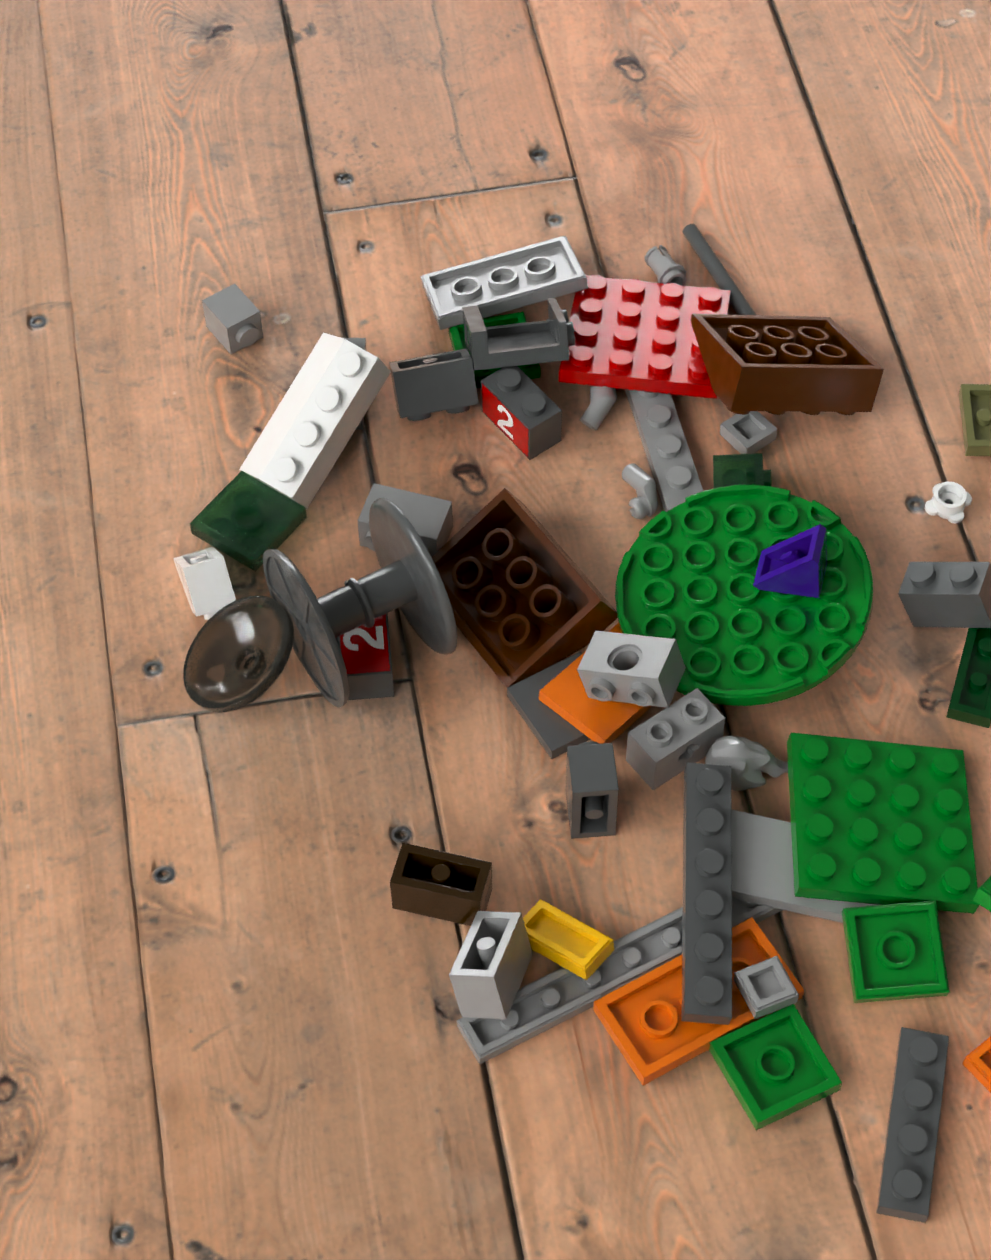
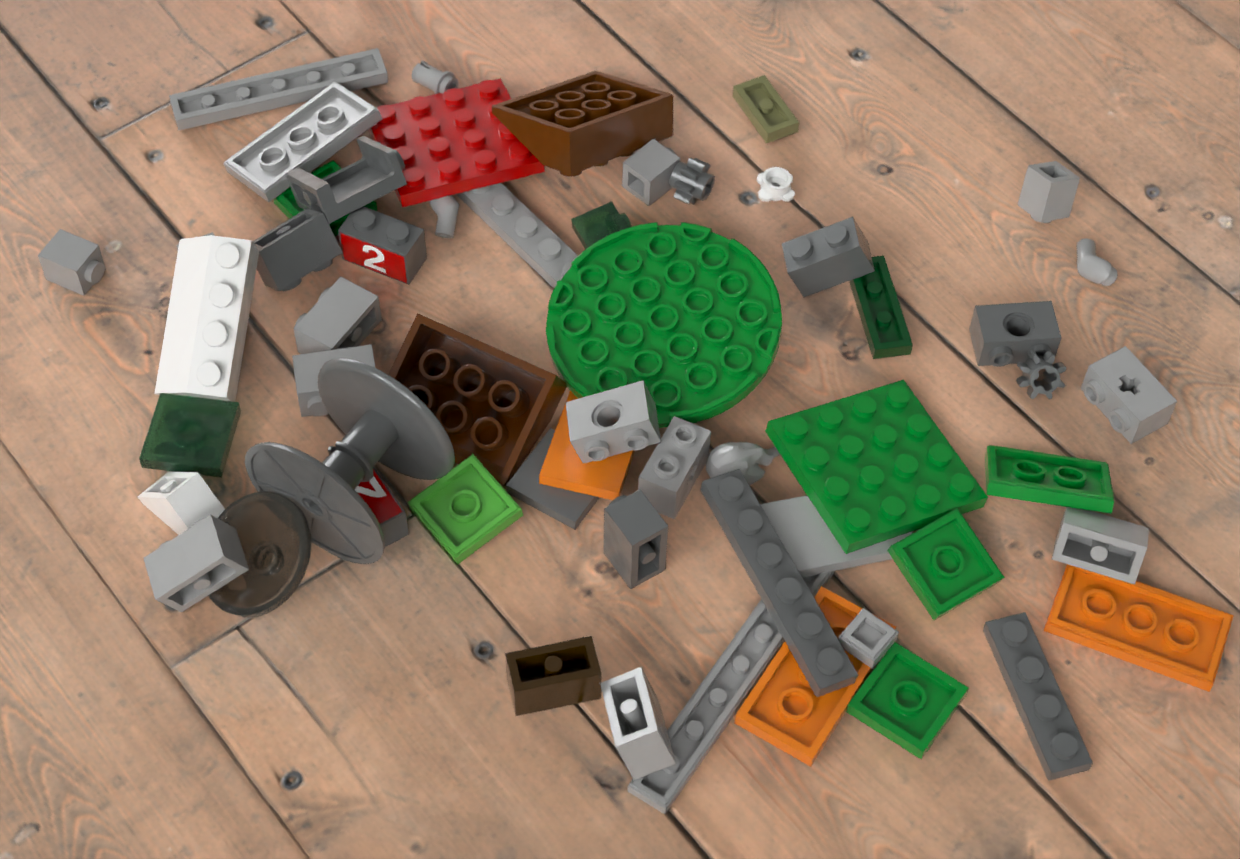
camera: 30 degrees left, 0 degrees up
(182, 639) = (195, 563): none -> light grey brick
(439, 466) = (338, 319): none -> light grey brick
(456, 694) = (465, 509): none -> bright green tile
(510, 223) = (276, 89): none -> light grey plate
(566, 940) = (682, 674): yellow tile -> none
(645, 487) = (524, 267): light grey arm -> none
(717, 270) = (477, 65): dark grey bar -> none
(748, 432) = (584, 190): light grey plate -> none
(794, 564) = (700, 280): dark purple slope -> none
(826, 439) = (649, 171): none -> light grey brick
(860, 464) = (692, 181): none -> dark grey gear

